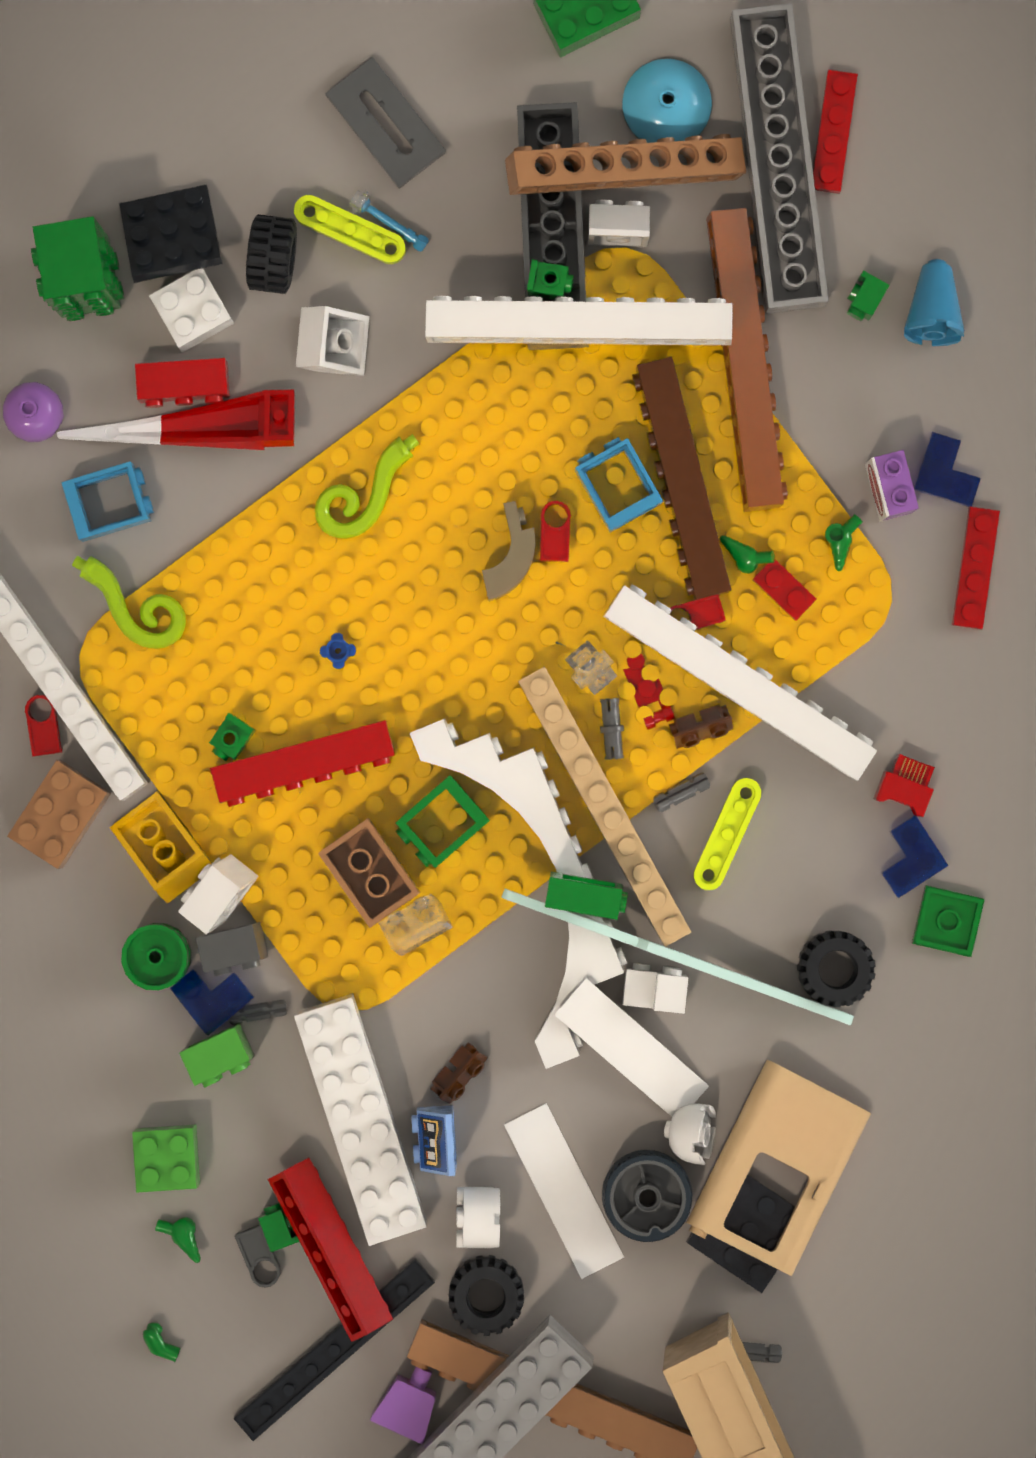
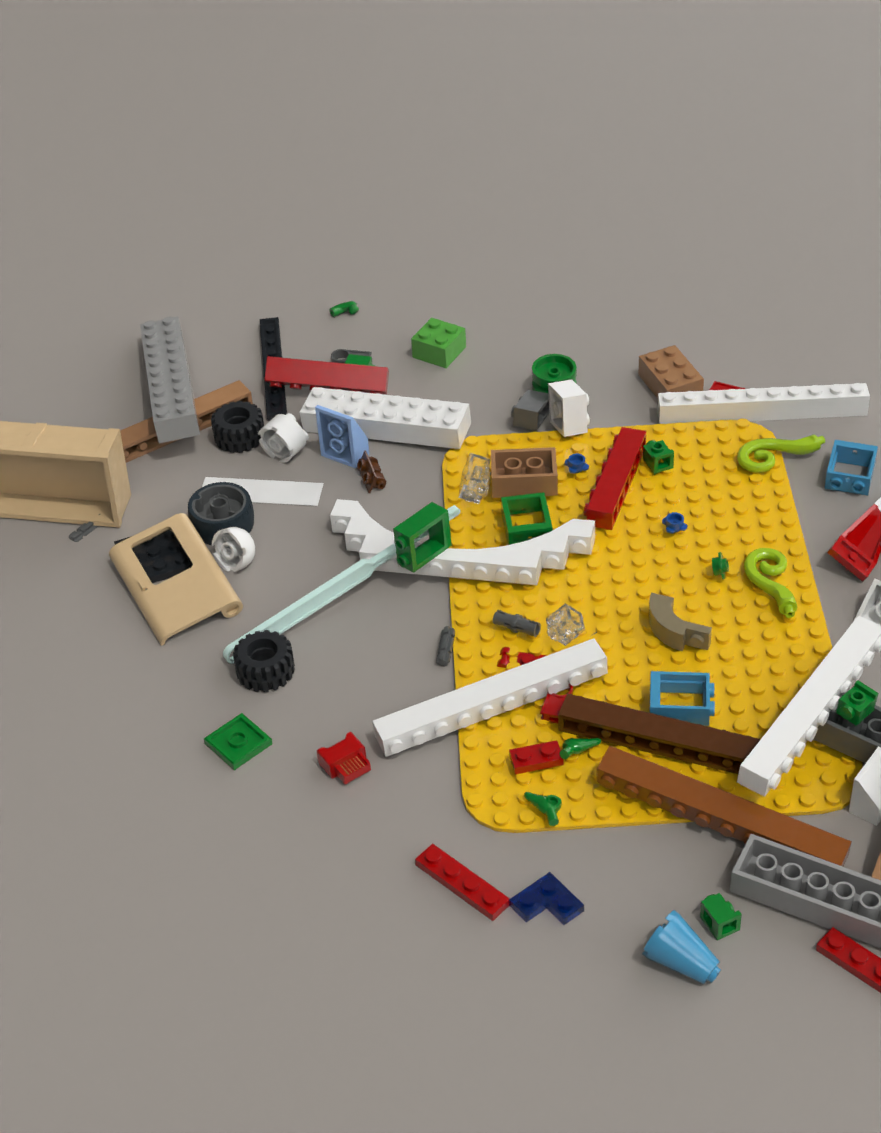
camera: 130 degrees right, 45 degrees down
(161, 847) = (615, 407): yellow slope -> none
(182, 1234) = (391, 337): green animal -> none
(212, 1007) = (507, 391): clear blue plate -> none
(216, 1055) = (475, 376): bright green brick -> none
(259, 1012) = (485, 411): dark grey axle -> none
(301, 836) = (576, 463): none -> blue plate
(383, 556) = (720, 565): none -> green plate
(407, 1406) = (211, 374): medium lavender torso -> none
(555, 540) = (667, 654): red piece -> none
(604, 806) = (467, 593): tan brick -> none
(630, 1048) = (310, 543): white sticker -> none
(655, 989) = (328, 563): white brick -> none
(715, 724) = (481, 659): reddish brown hinge -> none
(727, 834) = (399, 654): neon yellow plate -> none
(891, 485) = (562, 846): medium lavender piece -> none
(921, 858) = (293, 744): clear blue plate -> none

